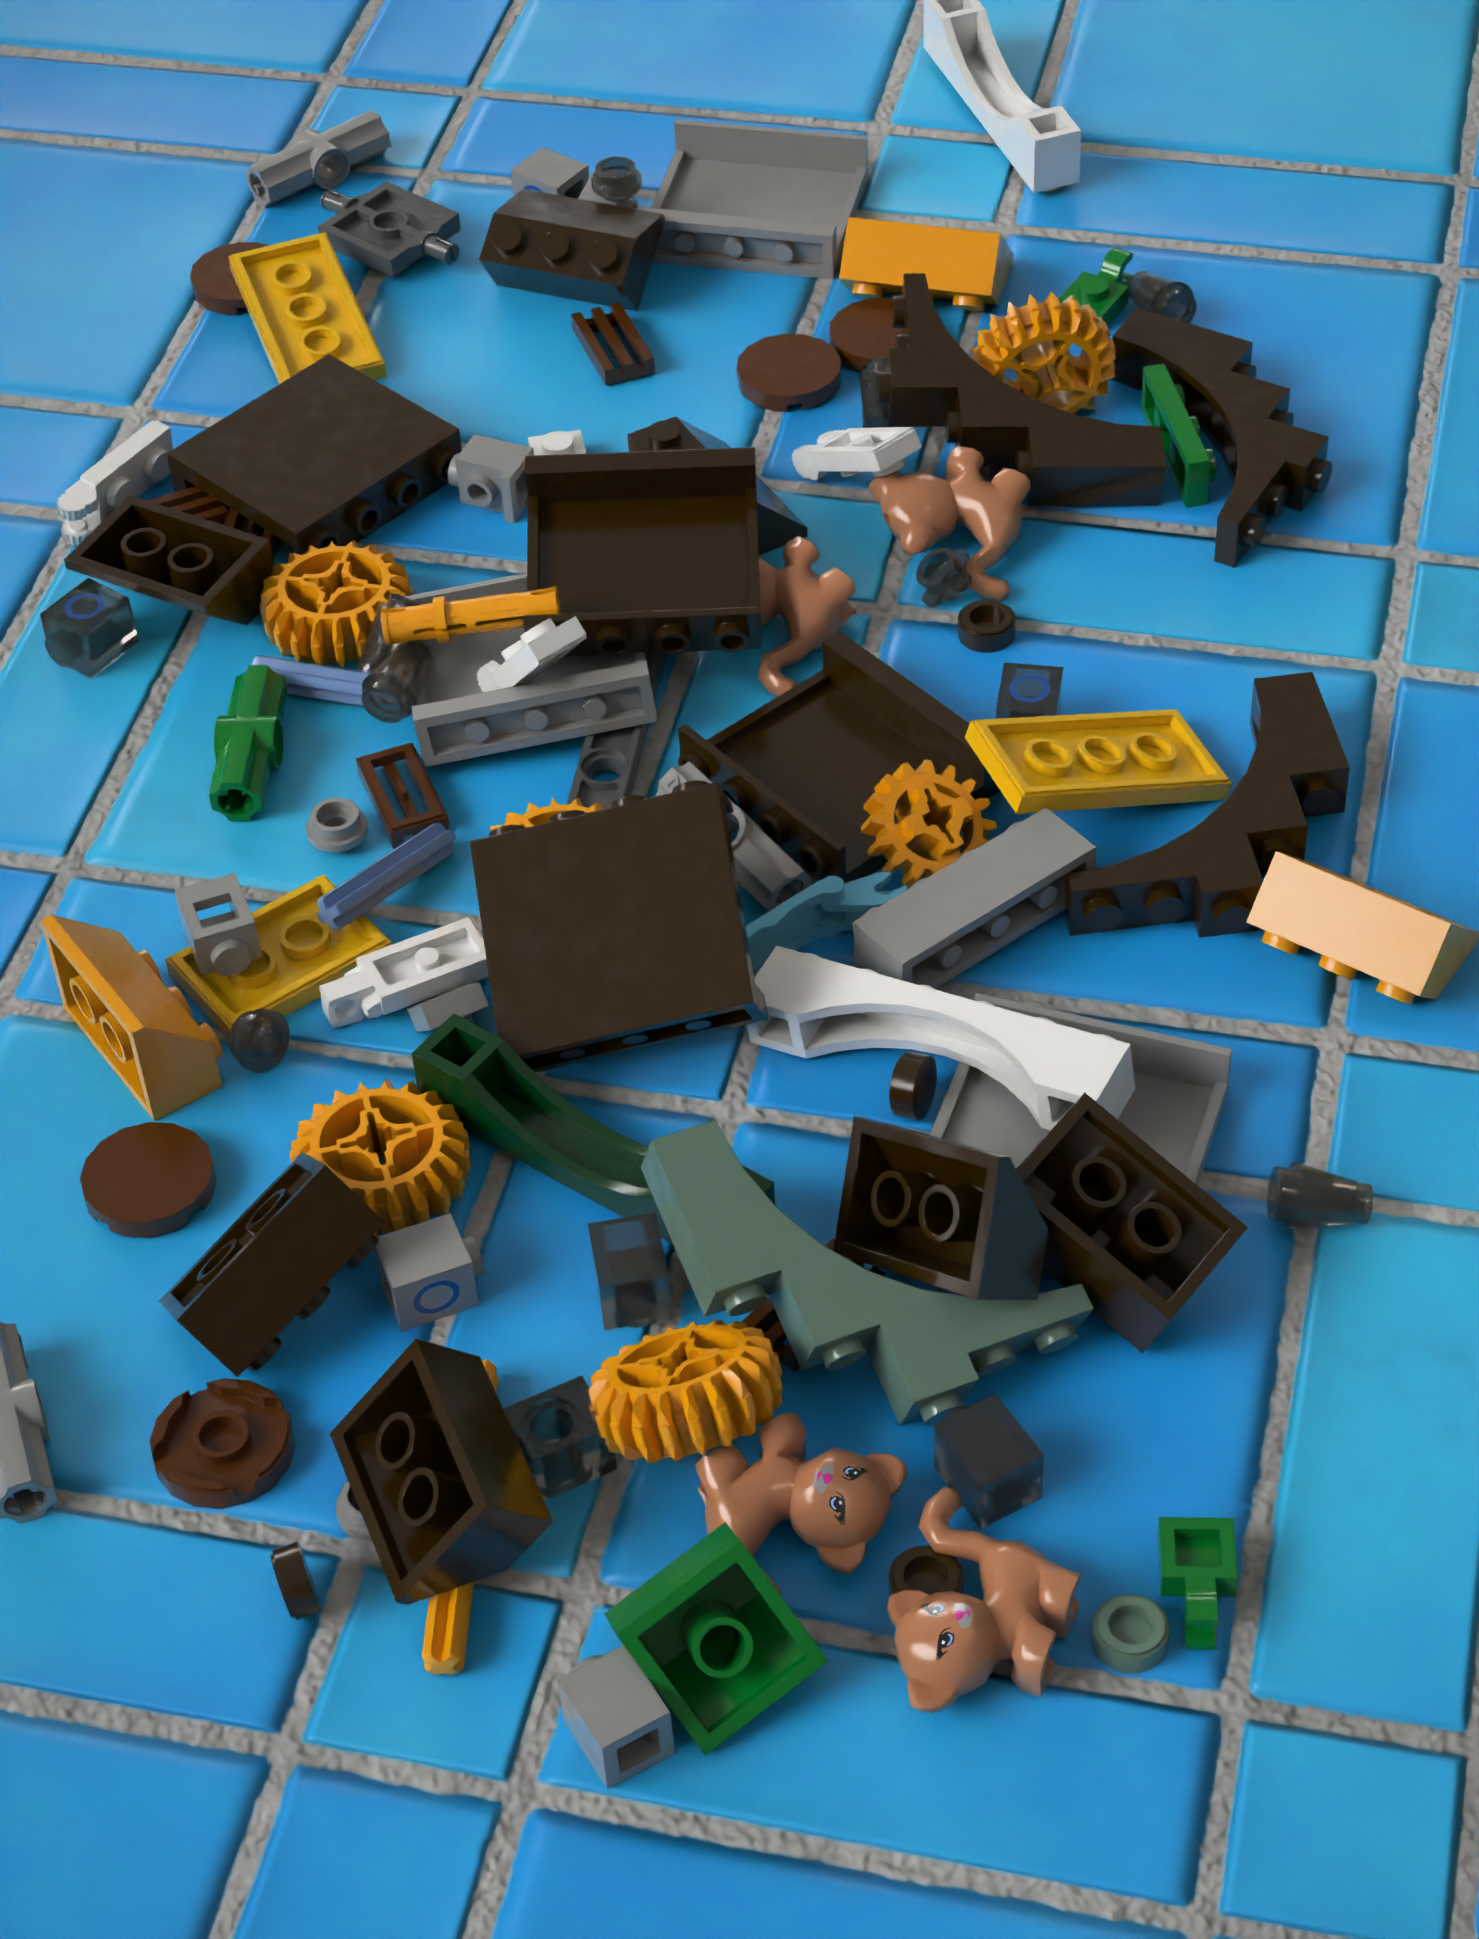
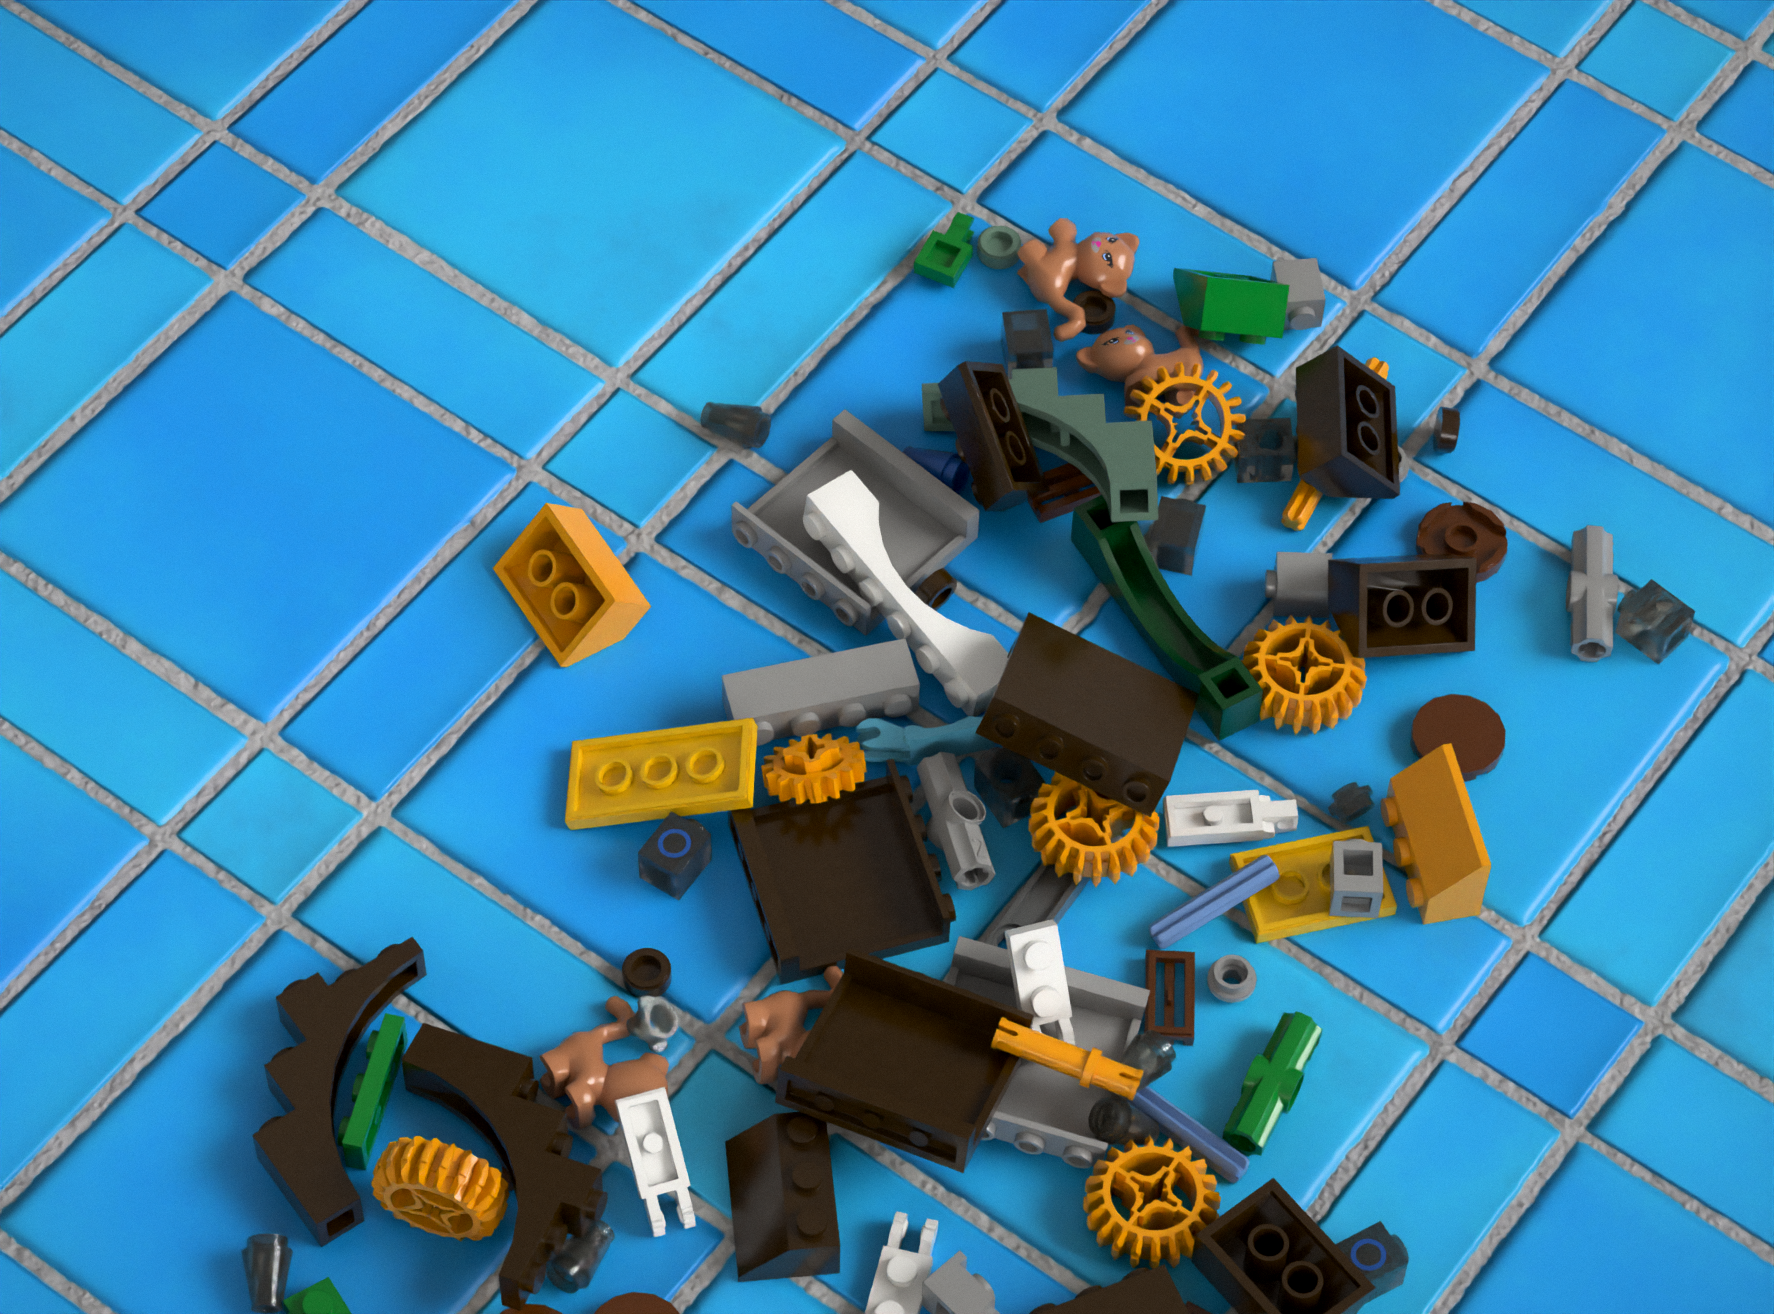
camera: 160 degrees left, 10 degrees up
(436, 1011) = (1213, 770): light grey plate -> none
(1123, 1221) = (890, 405): dark brown slope -> none
(1219, 864) = (586, 685): dark brown arch -> none

